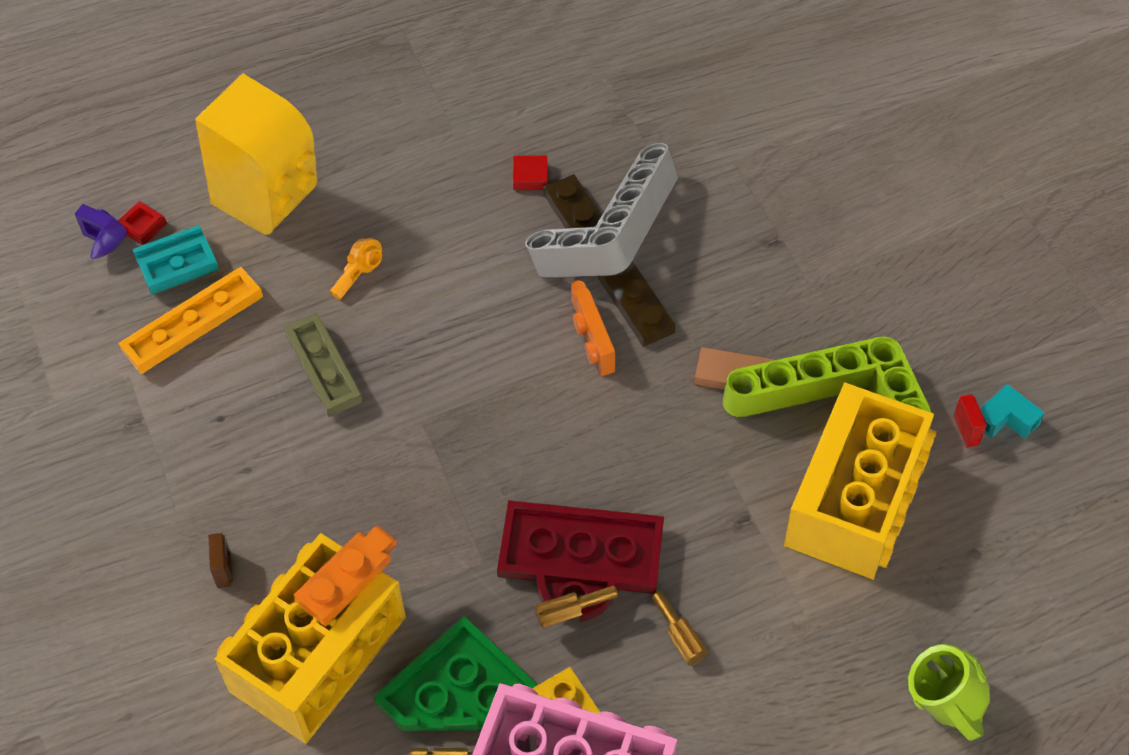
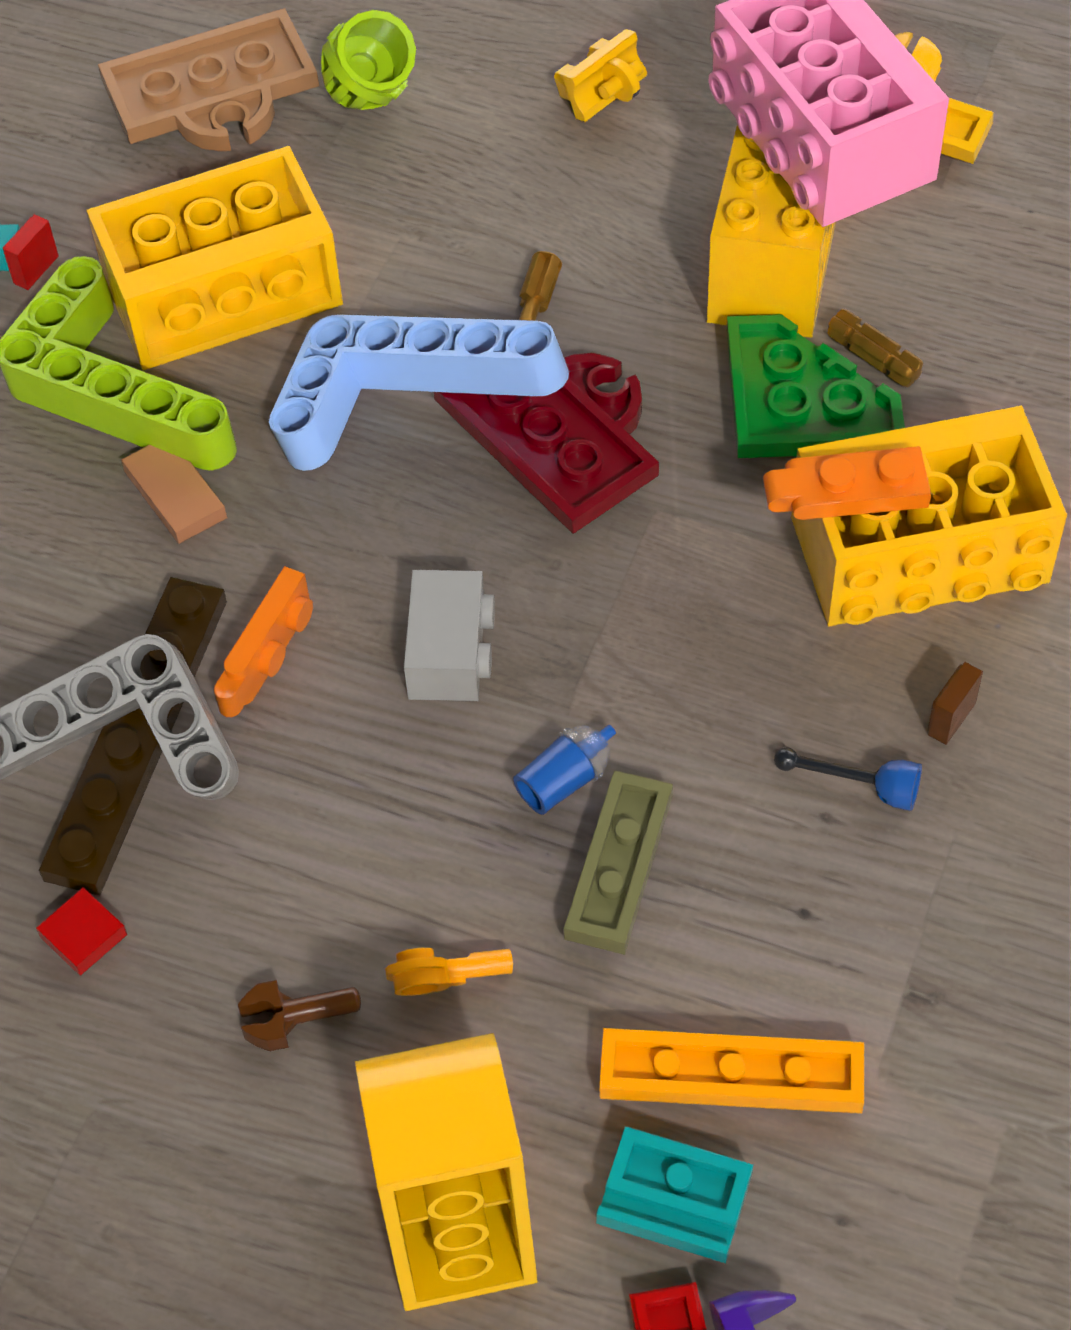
camera: 135 degrees left, 0 degrees up
(221, 500) = (894, 782): none -> hinge
(389, 383) = (564, 767): none -> blue piece
(405, 199) = (290, 1012): none -> reddish brown bar
(509, 397) = (447, 635): none -> light grey brick
(570, 606) = (626, 361): pearl gold axle -> none
(718, 498) = (405, 355): none -> light blue beam
(1033, 614) = (210, 81): none -> medium nougat plate

